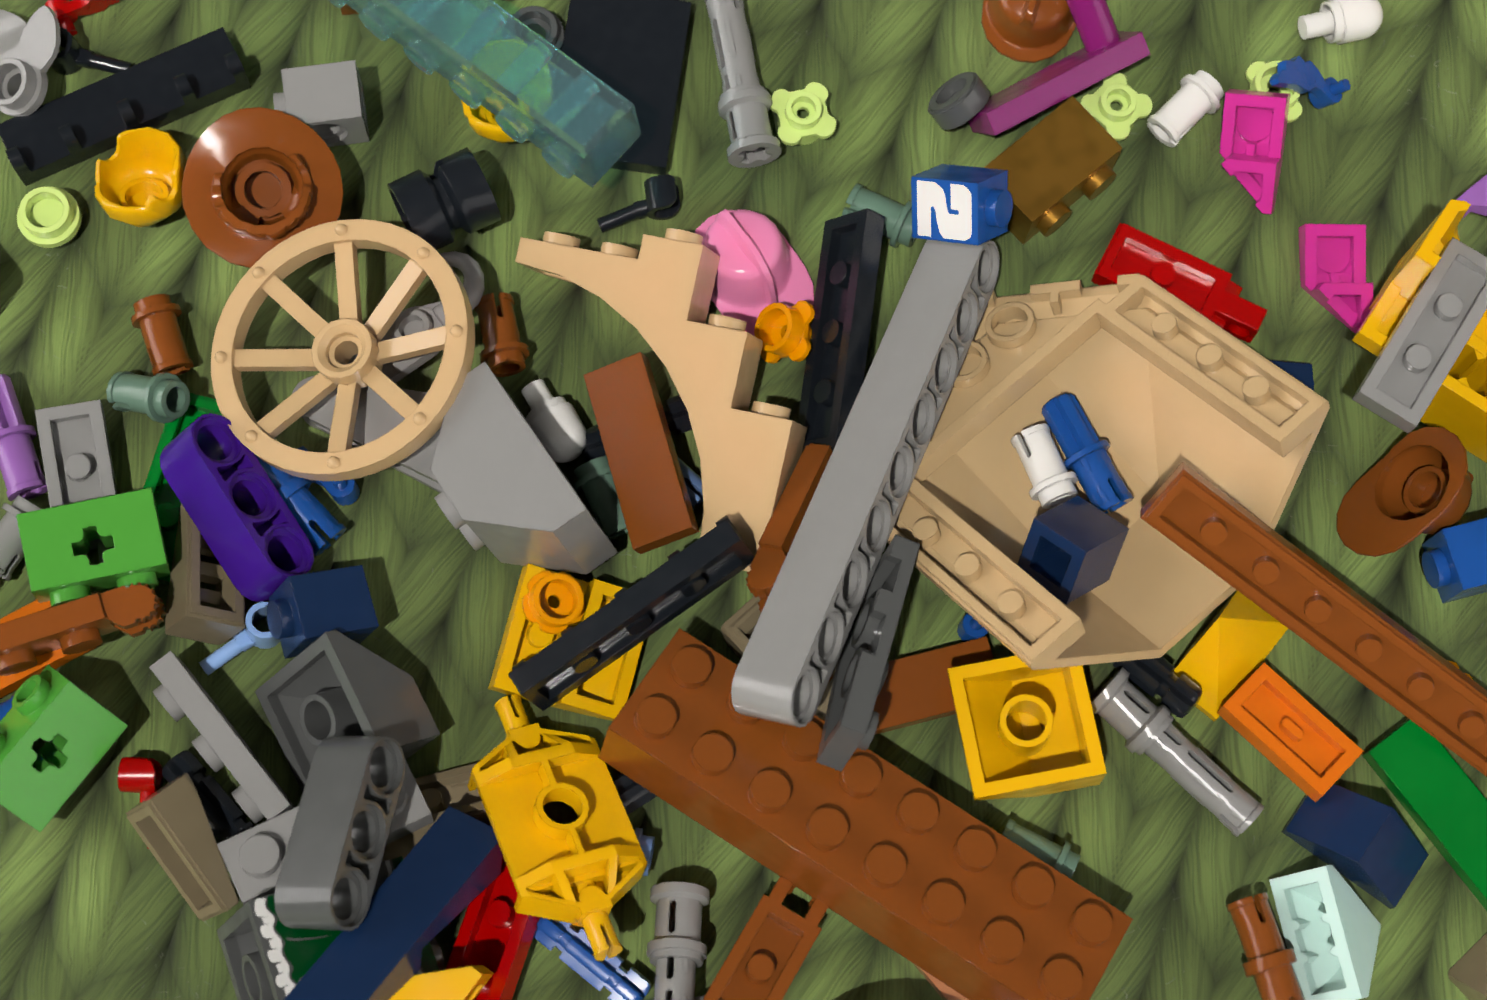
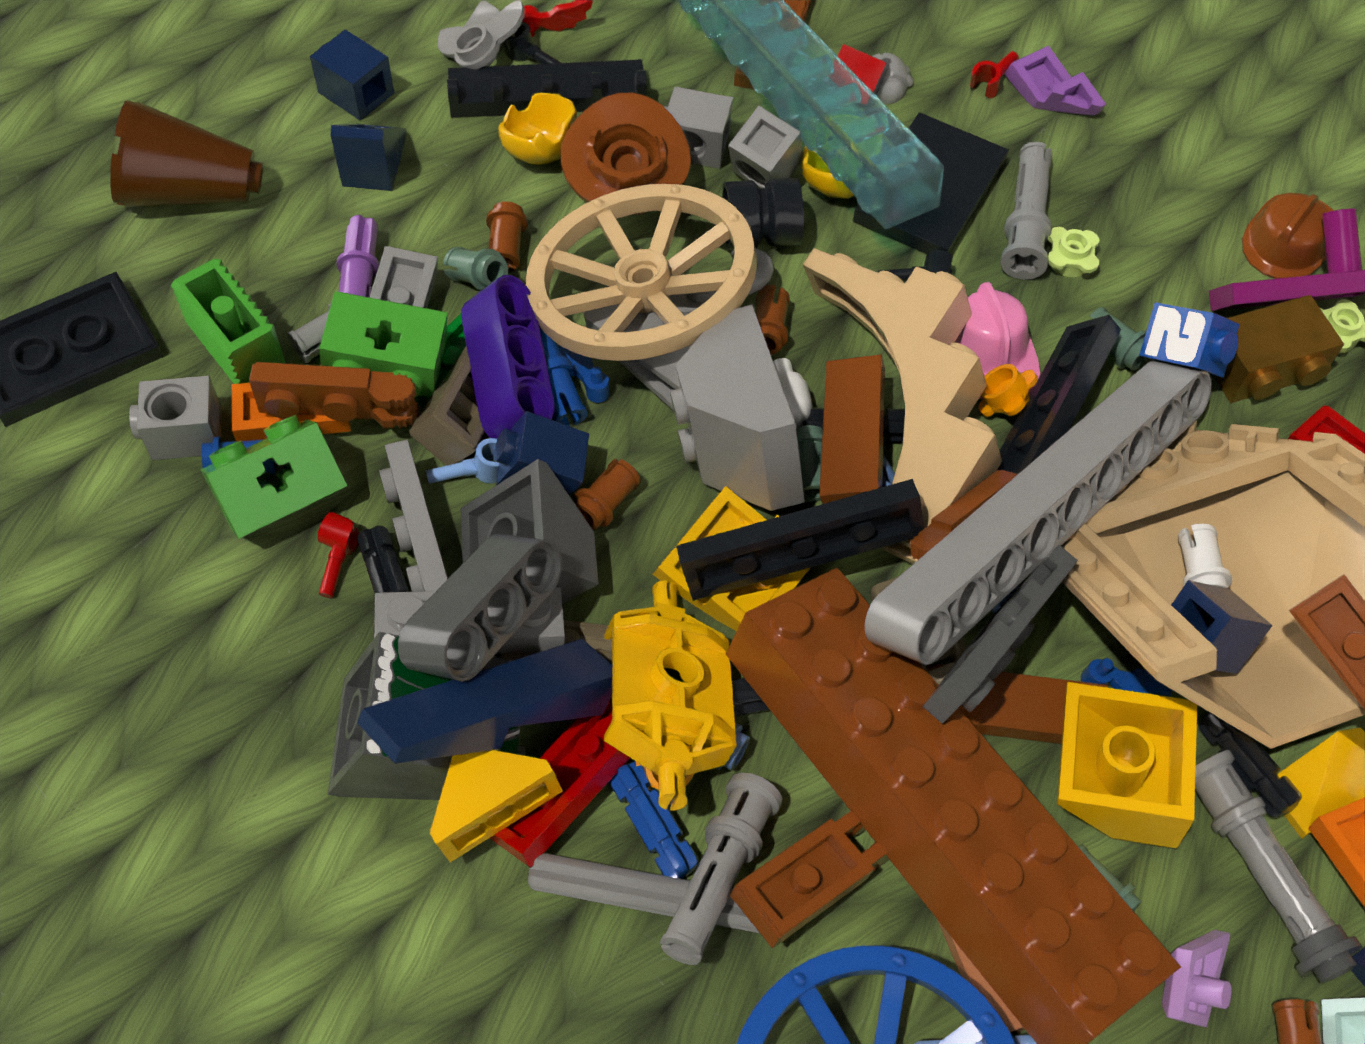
camera: 25 degrees right, 15 degrees down
(49, 217) = (458, 135): yellowish green plate -> none
(184, 845) = (347, 589): dark tan slope -> none
(404, 620) = (606, 493): none -> dark orange pin
(419, 119) = (765, 148): none -> light grey brick
(565, 589) = (735, 503): light orange plate -> none
(958, 100) = (1208, 277): dark grey tile -> none
(1086, 453) = (1245, 563): blue axle -> none
(1151, 909) = (1196, 985): none -> lavender piece
(1263, 840) = (1326, 954): none -> dark grey plate

